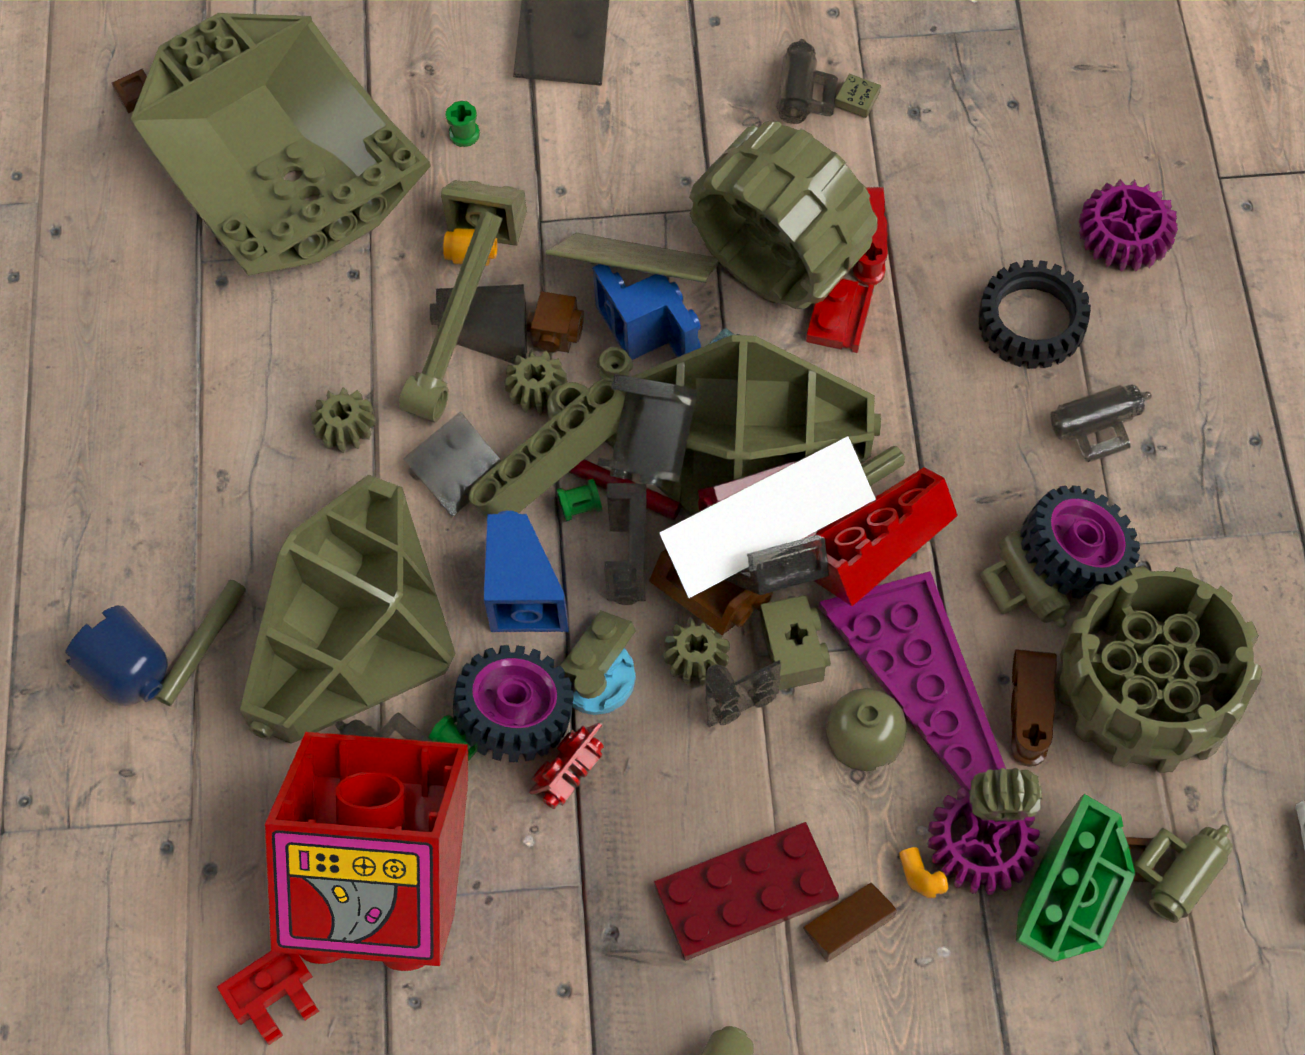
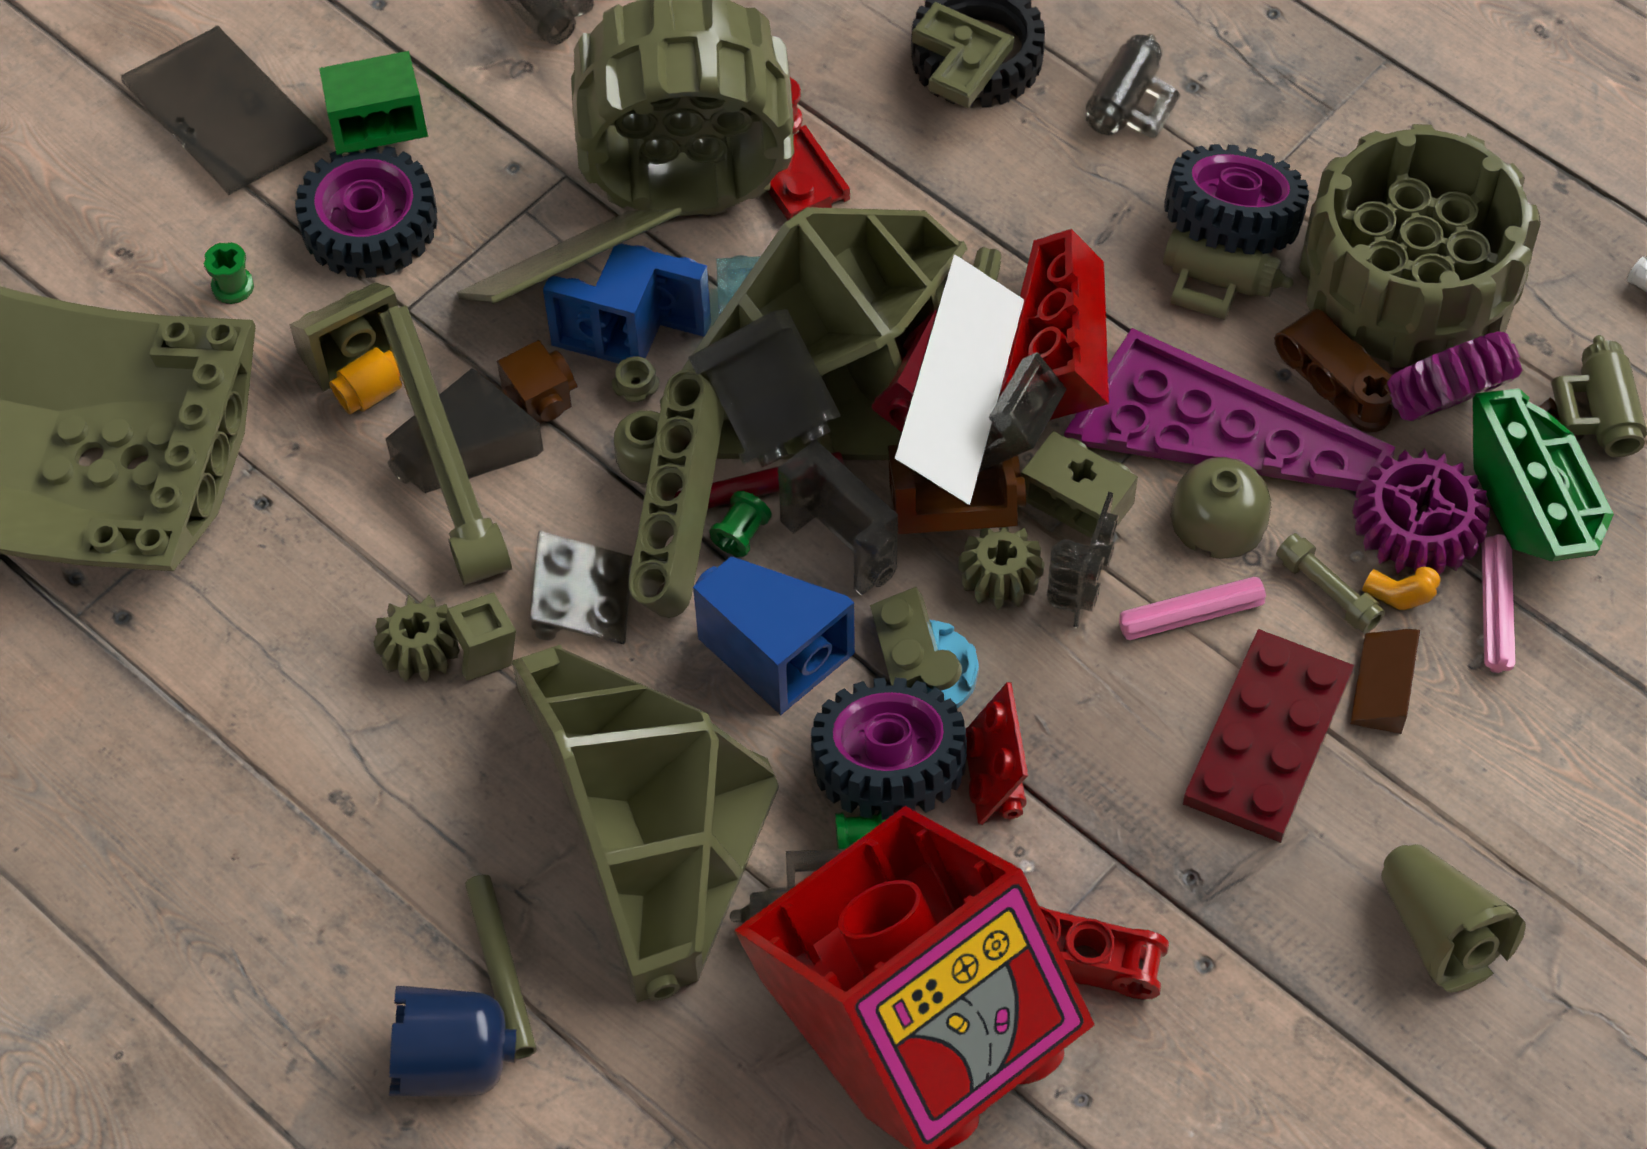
camera: 45 degrees left, 5 degrees down
(371, 446) = (483, 634): none -> olive panel
(513, 945) = (1119, 954): none -> red piece
(533, 380) = (576, 452): olive gear -> none
(572, 144) = (366, 211): none -> wheel
(634, 79) = (373, 102): none -> green brick
(783, 774) = (1192, 608): none -> bright pink axle
(882, 864) = (1361, 610): none -> olive bar
(972, 937) = (1498, 604): none -> bright pink axle
(1005, 794) = (1419, 444): olive gear -> none
(1013, 317) = (970, 50): none -> olive tile
(1087, 771) = (1454, 376): none -> magenta gear

